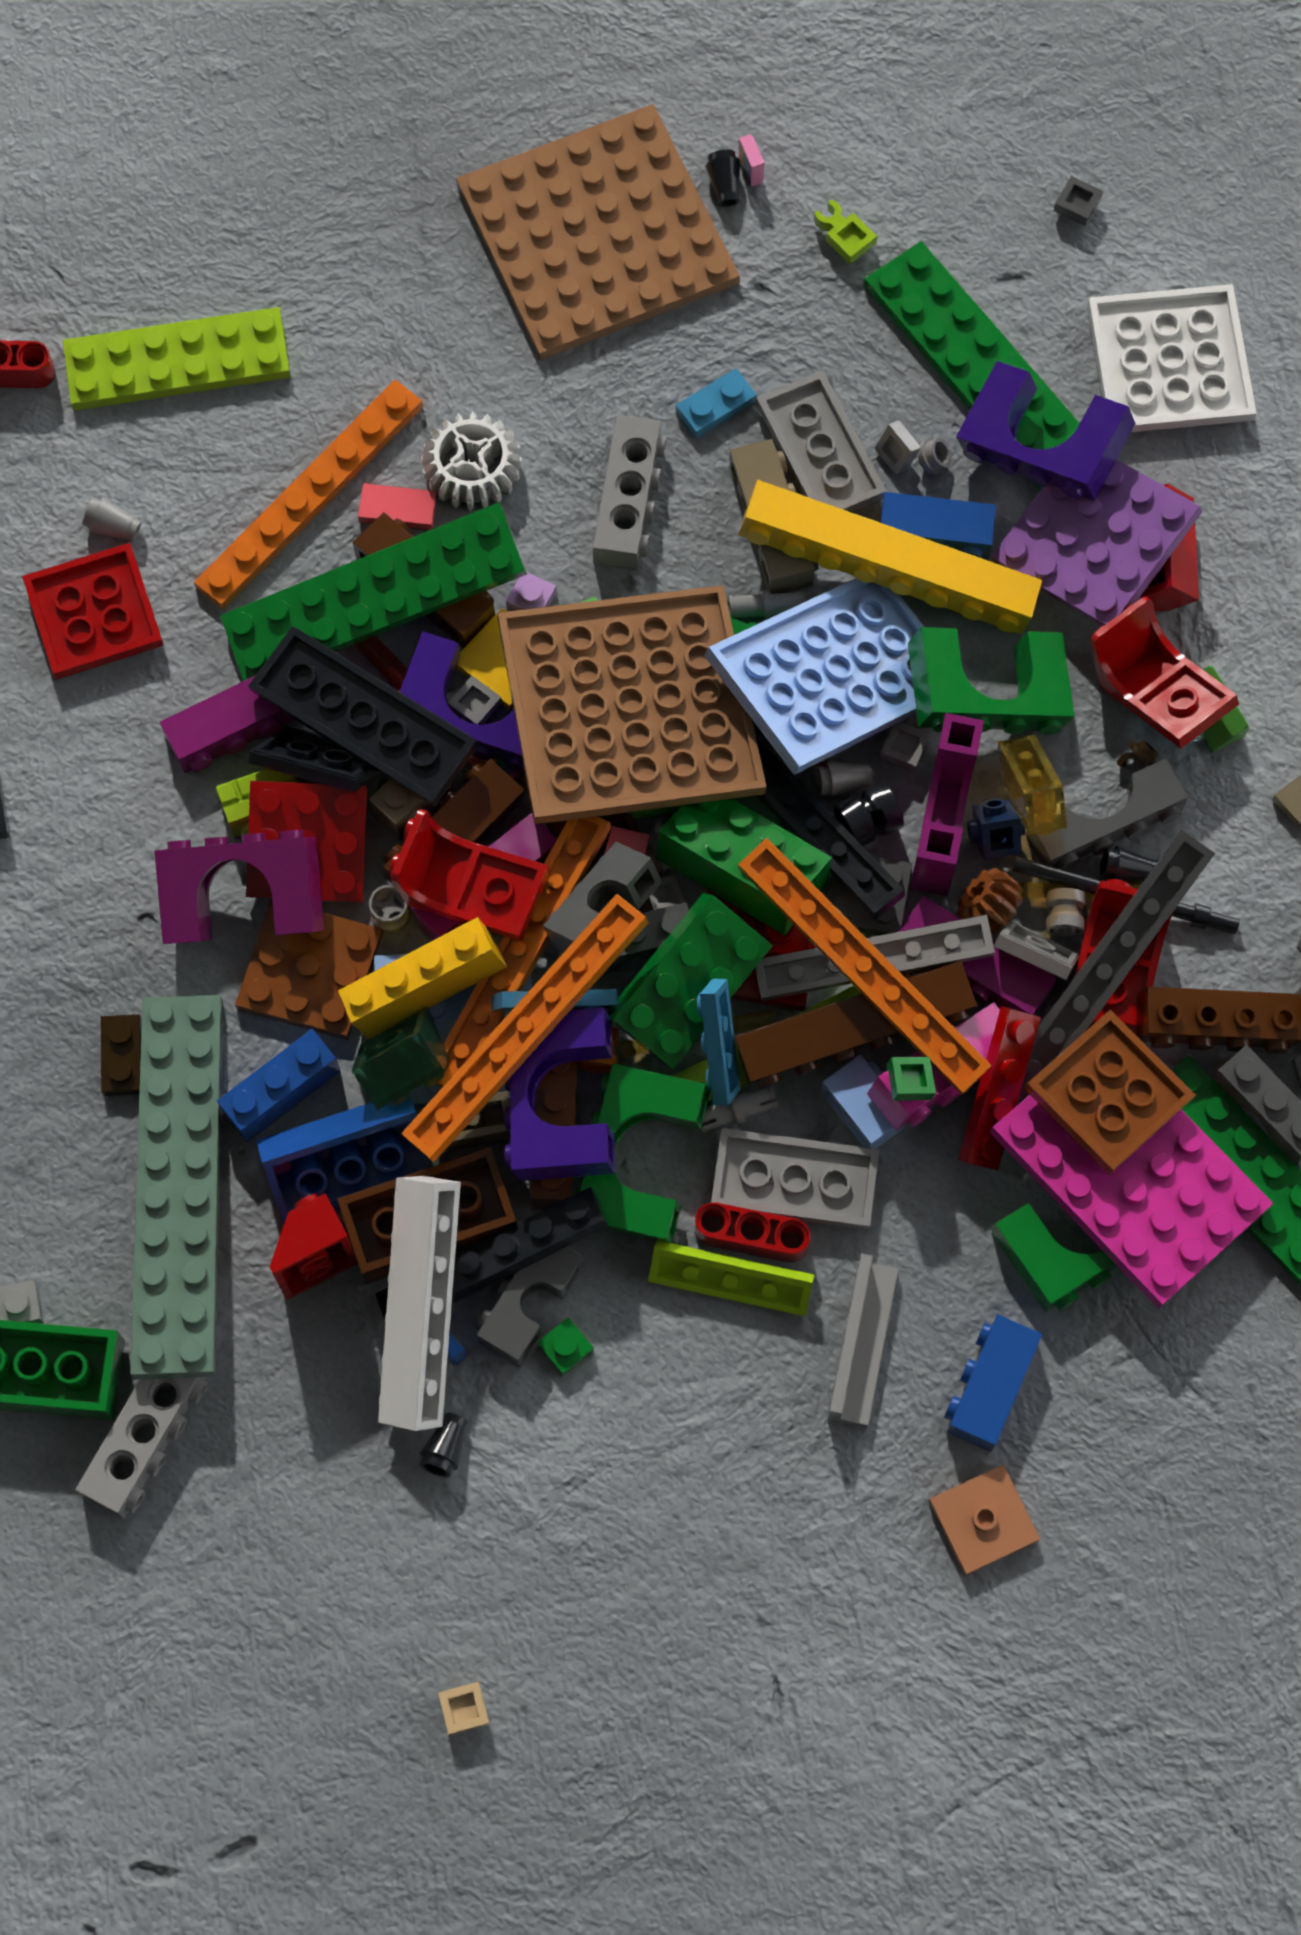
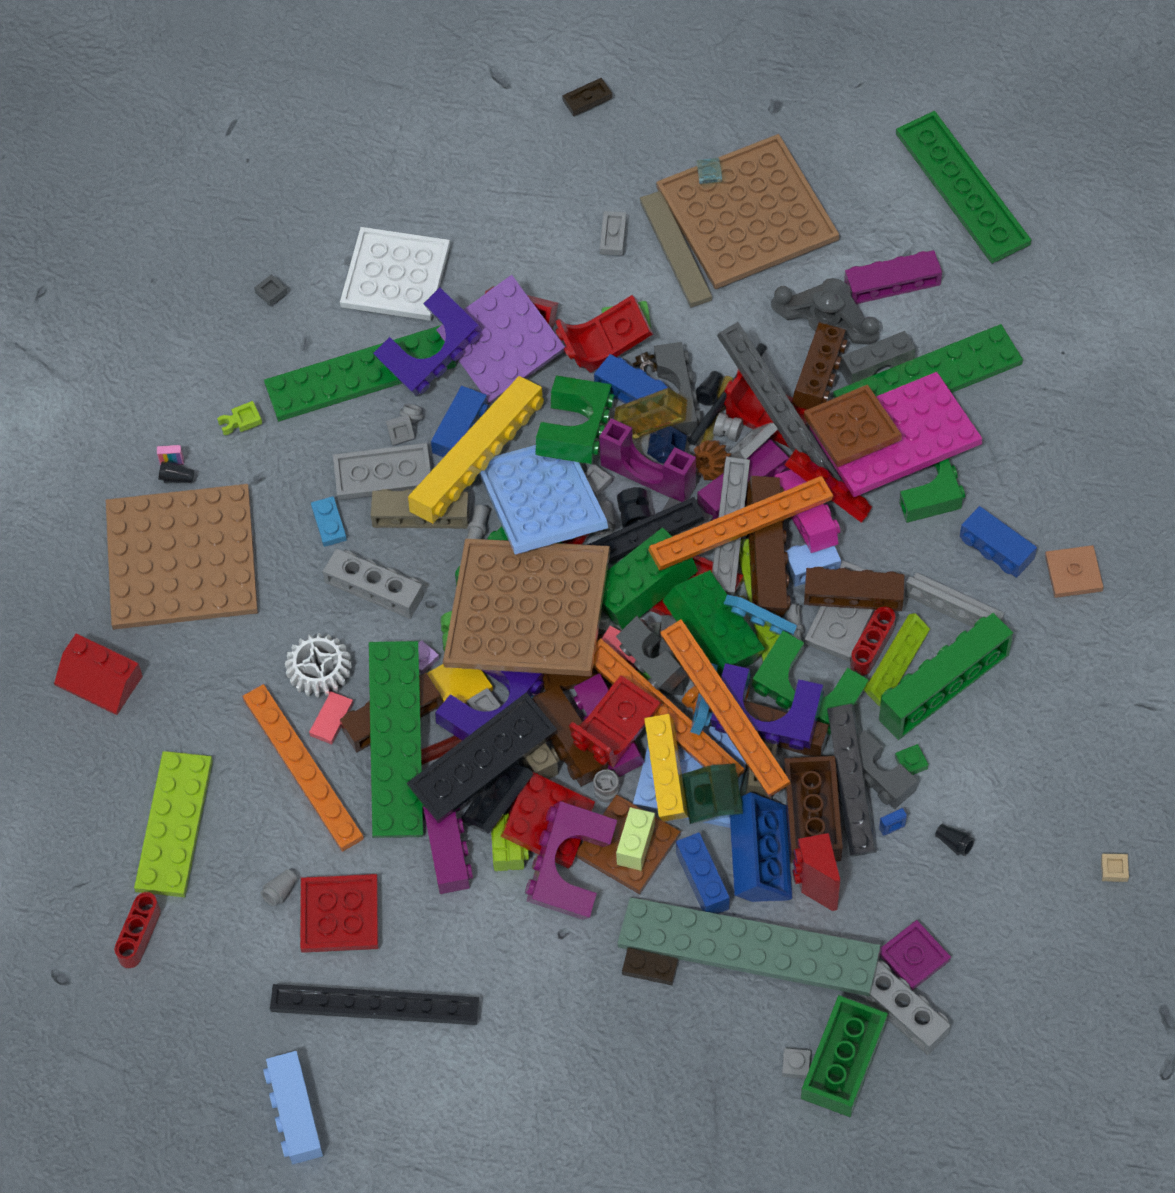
camera: 70 degrees left, 10 degrees down
(232, 1432) = (914, 955): none -> magenta plate
(299, 970) = (635, 838): none -> yellowish green brick
(373, 186) = (97, 674): none -> red slope
(419, 1302) = (872, 818): white brick -> none
(714, 1355) = (945, 675): none -> green brick
(824, 1176) = (854, 588): none -> reddish brown brick
(911, 1078) = (817, 517): green plate -> none
(1092, 748) = (626, 381): none -> blue brick

